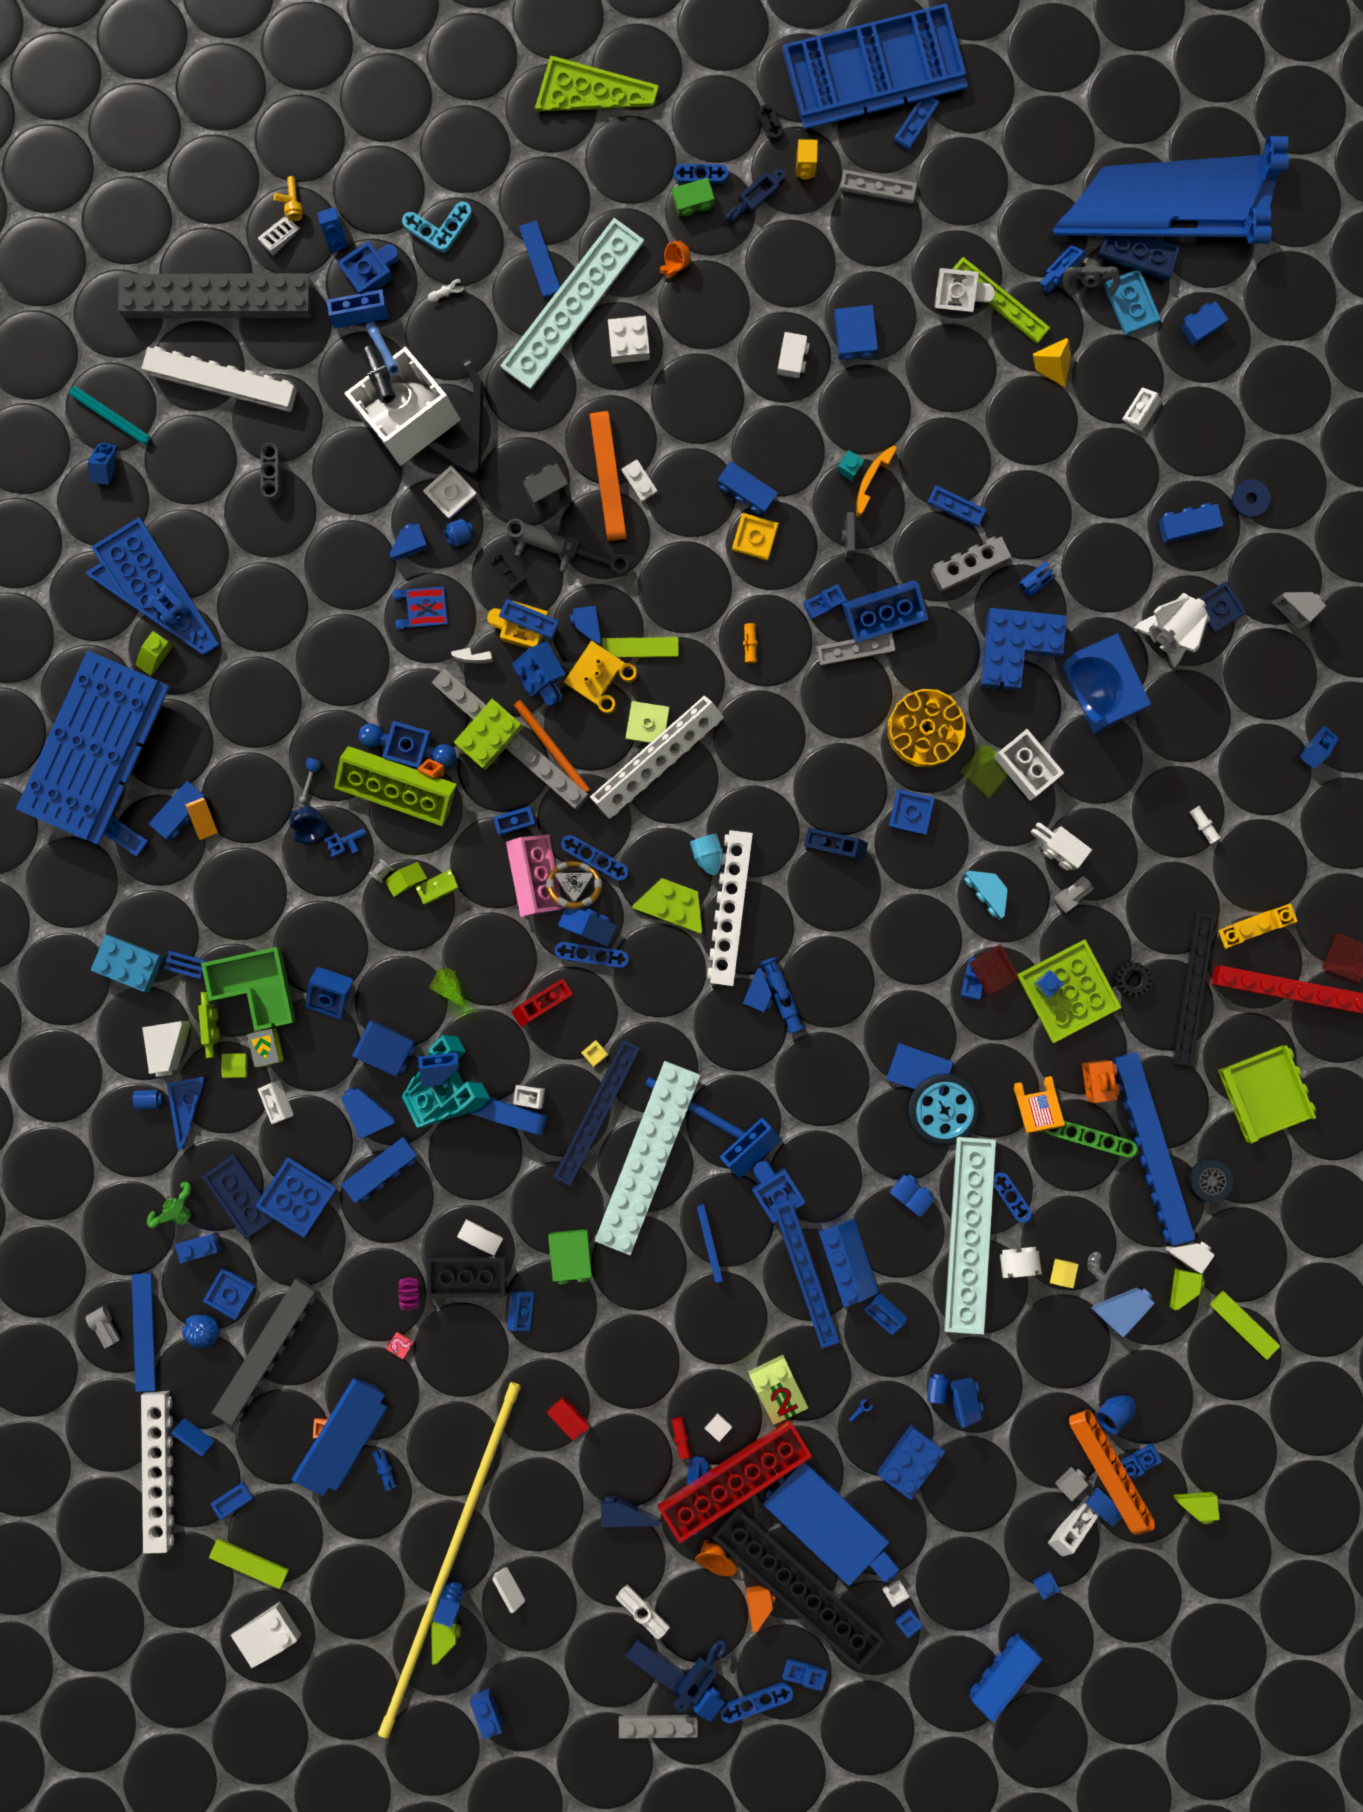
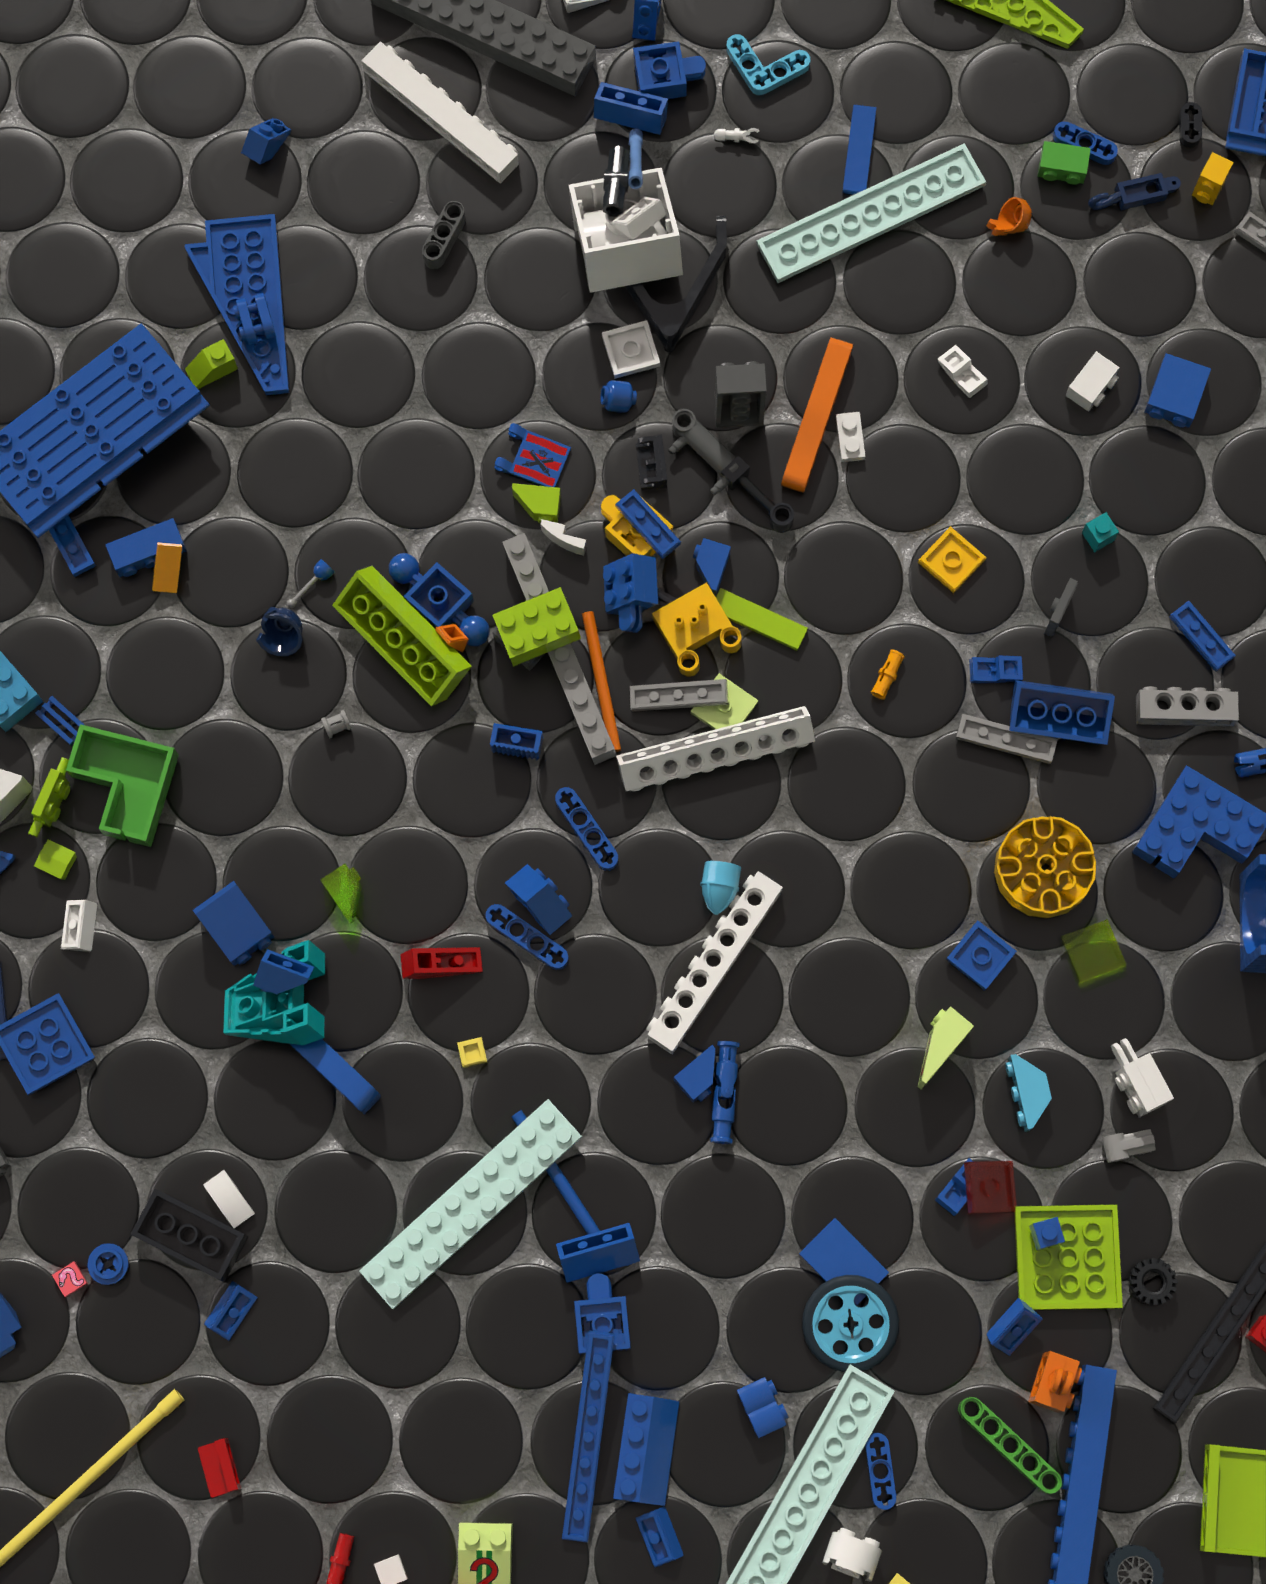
camera: 25 degrees right, 10 degrees down
(109, 415) = (301, 95): teal axle -> none
(265, 1047) = (100, 856): piece -> none
(328, 993) = (204, 831): blue slope -> none
(349, 839) = (317, 671): blue arm -> none
(365, 1112) = (174, 989): blue slope -> none
(380, 1169) = (155, 1061): blue brick -> none
(405, 879) = (359, 746): lime slope -> none
(408, 542) = (556, 380): blue slope -> none
(409, 1293) = (112, 1221): magenta gear -> none
(410, 394) = (640, 217): none -> white slope
(412, 1326) = (96, 1265): none -> blue gear
(437, 887) = (390, 774): lime hinge -> none
(442, 638) = (538, 501): none -> lime slope
(529, 1096) = (371, 1064): white slope -> none
(530, 865) = (507, 813): bright pink slope -> none
(570, 1256) = (321, 1274): bright green brick -> none
(574, 884) = (547, 845): piece -> none
(596, 1112) = (439, 1121): dark blue plate -> none
(611, 731) = (679, 695): none -> light grey tile
(628, 339) = (915, 279): white brick -> none
(672, 904) = (649, 925): lime wing -> none
(695, 392) = (962, 371): none -> white slope
(709, 1243) = (492, 1341): blue tile -> none
(746, 488) = (968, 502): blue brick -> none
(836, 844) = (875, 949): dark blue slope -> none
(882, 460) = (1141, 544): light orange slope -> none
(915, 884) = (946, 1035): none -> yellowish green slope
(1028, 764) = (1146, 966): white brick -> none
(1041, 1109) = (965, 1380): light orange flag -> none
(1054, 1056) = (1013, 1327): none -> blue slope

